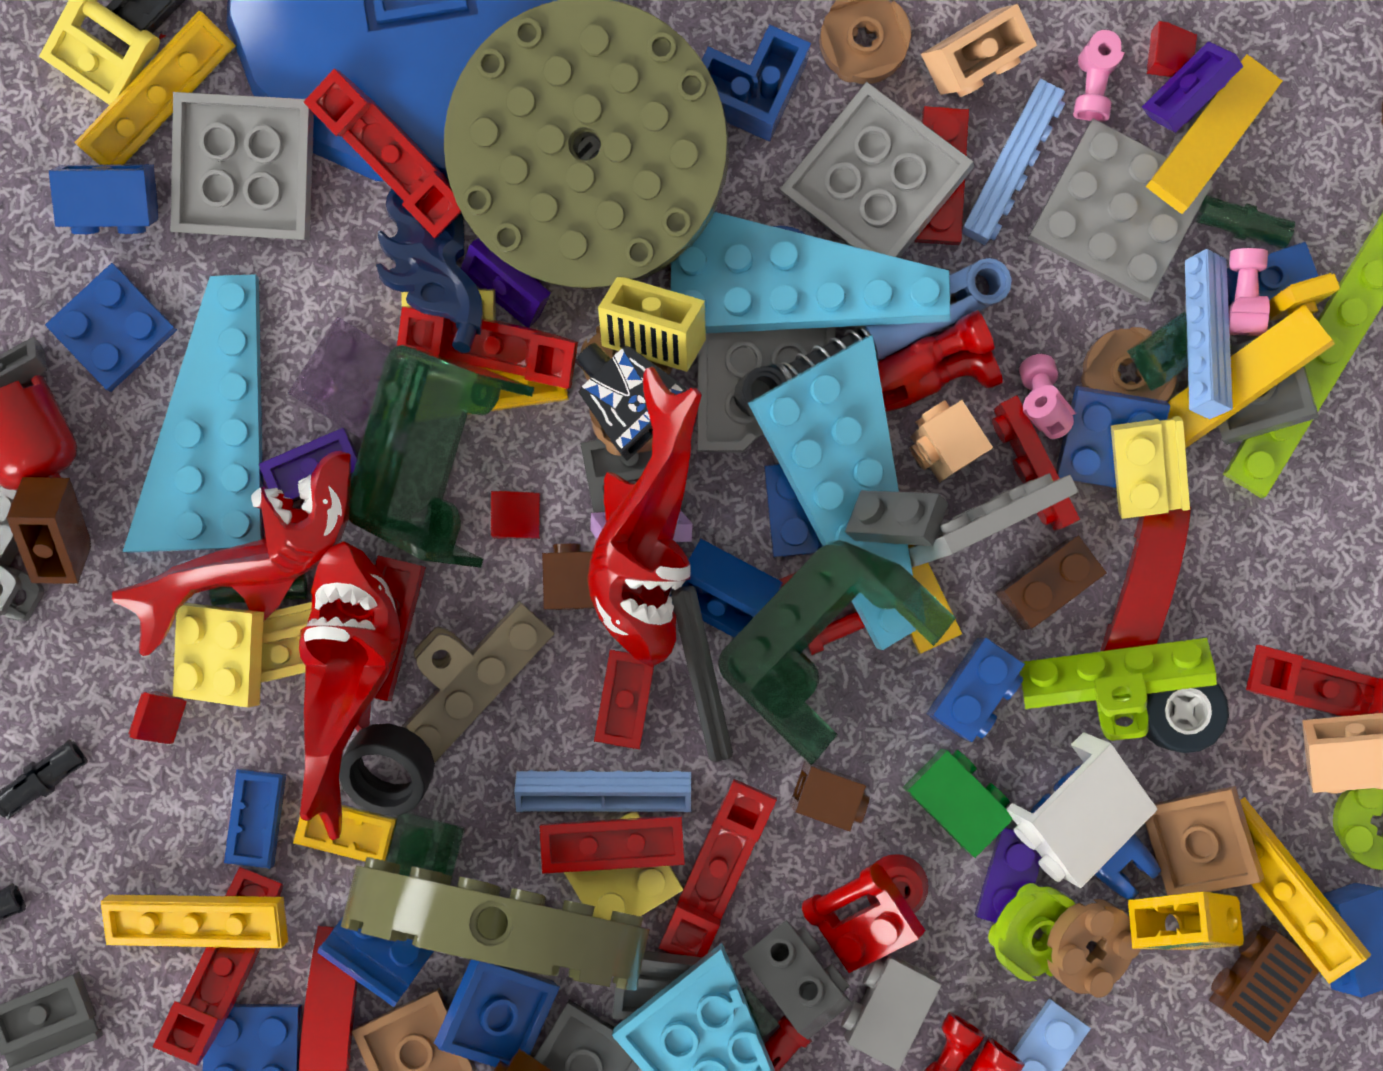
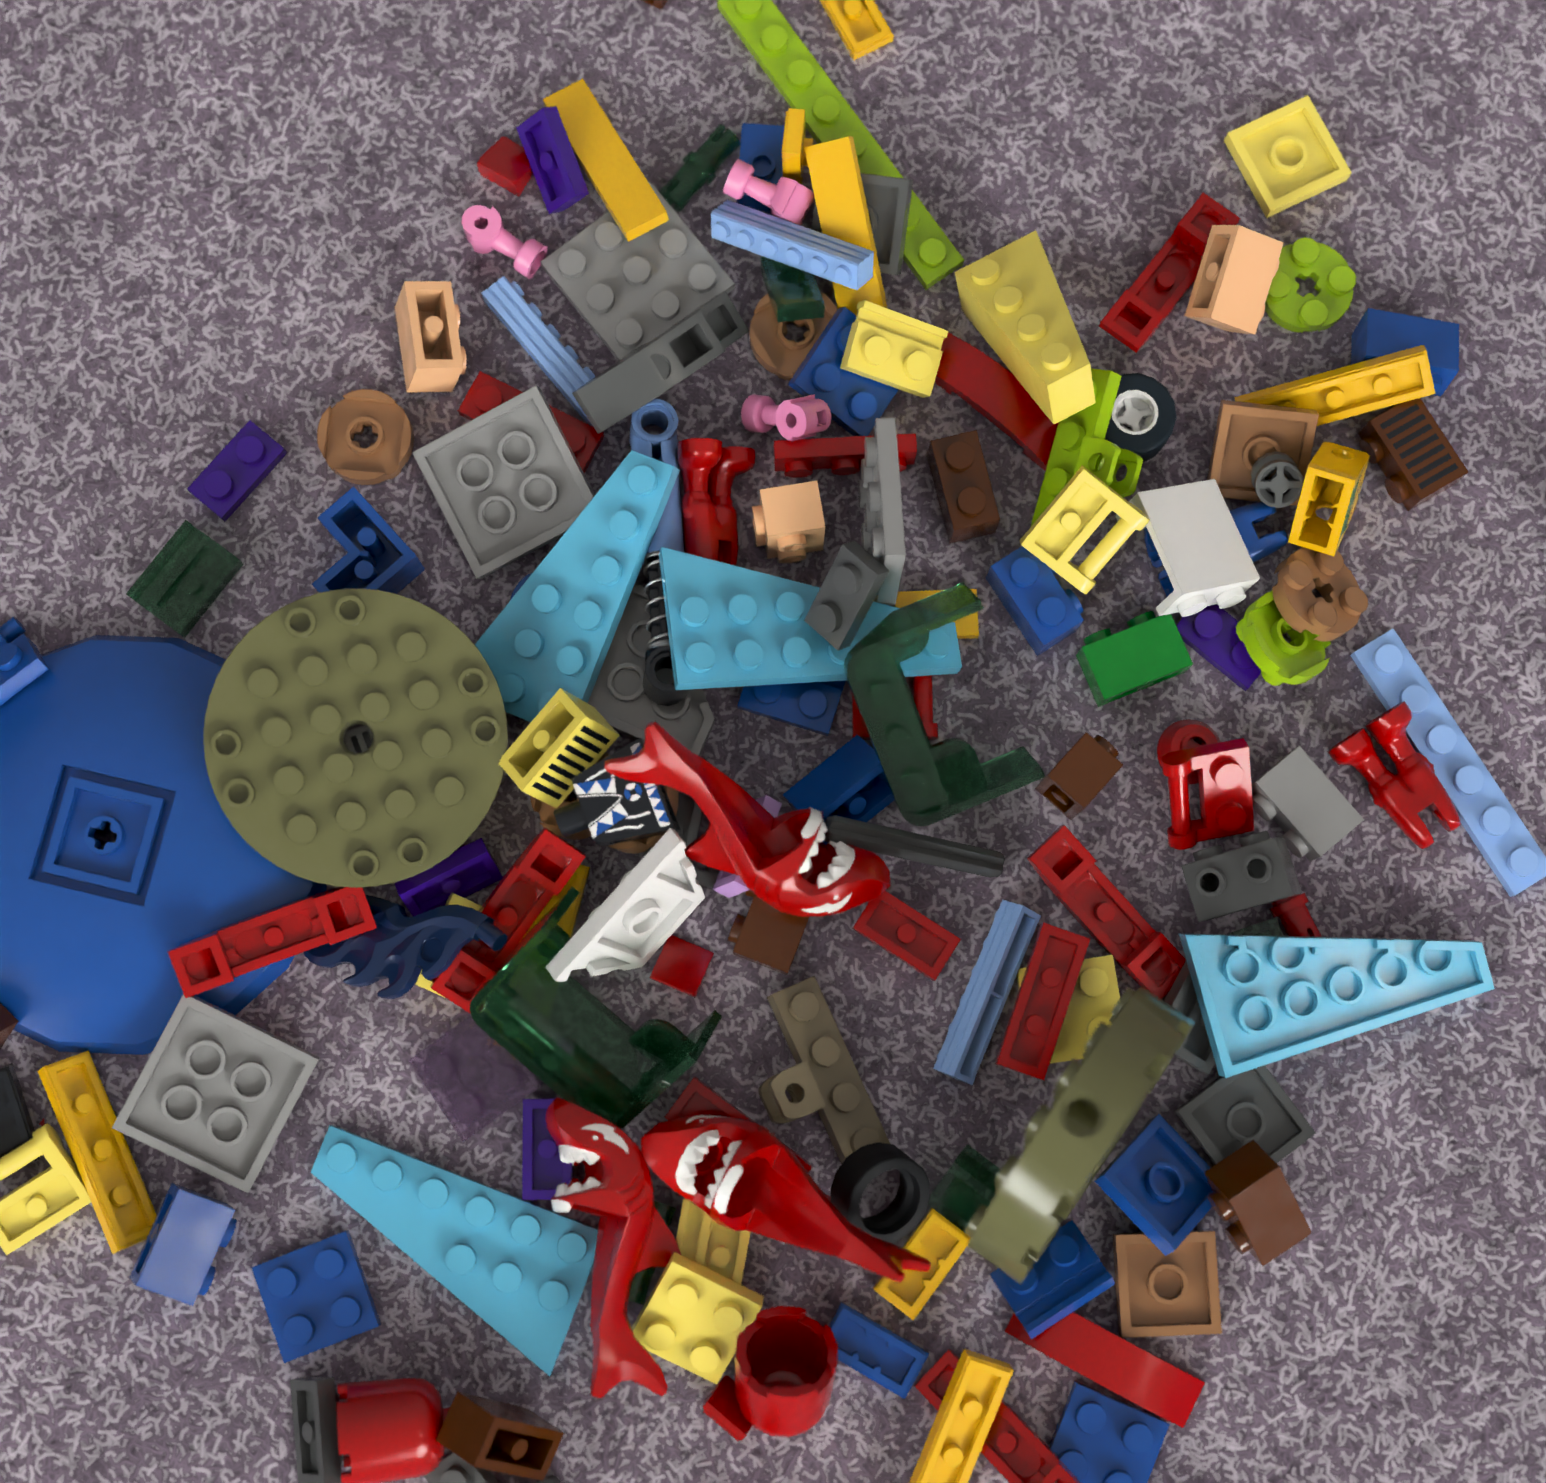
camera: 65 degrees left, 5 degrees down
(200, 749) = (784, 1371): none -> red cylinder
(536, 455) = (636, 915): none -> white wing
(1045, 264) = (661, 362): none -> dark grey slope
(1058, 694) = (1073, 519): none -> light yellow plate
(1173, 874) = (1278, 490): none -> dark grey wheel
(1228, 577) = (1028, 325): none -> light yellow wedge

